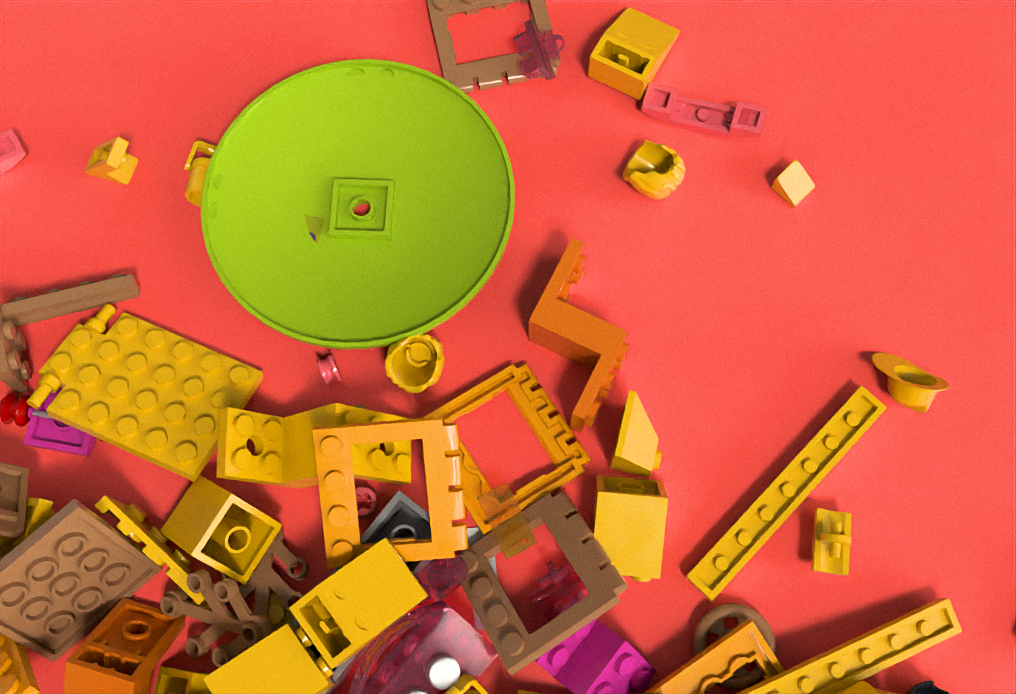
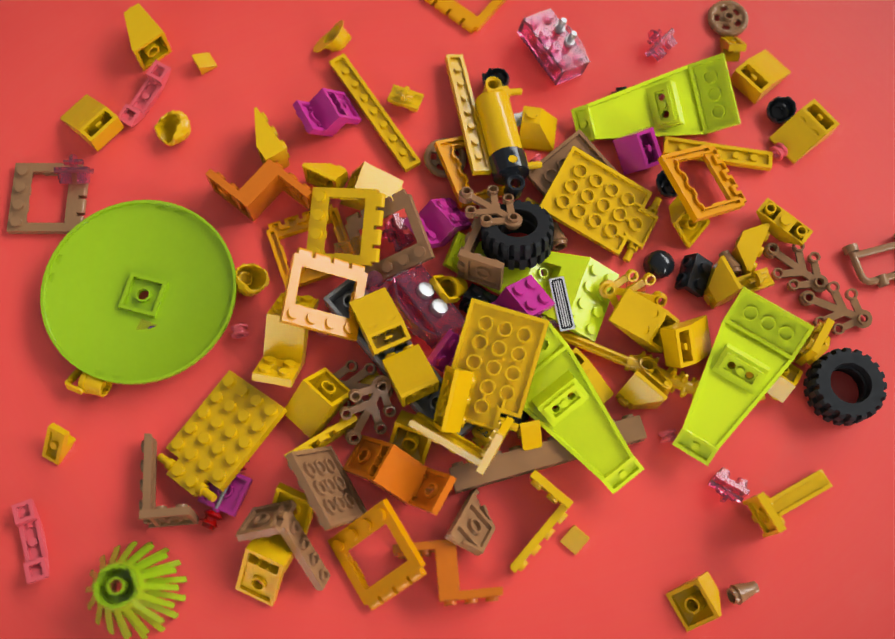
camera: 85 degrees left, 0 degrees up
(556, 539) = (372, 218): none -> yellow hinge
(667, 322) = (267, 141): none -> yellow slope
(756, 408) = (326, 112): none -> dark pink bracket
(801, 78) = (145, 37): none -> yellow slope

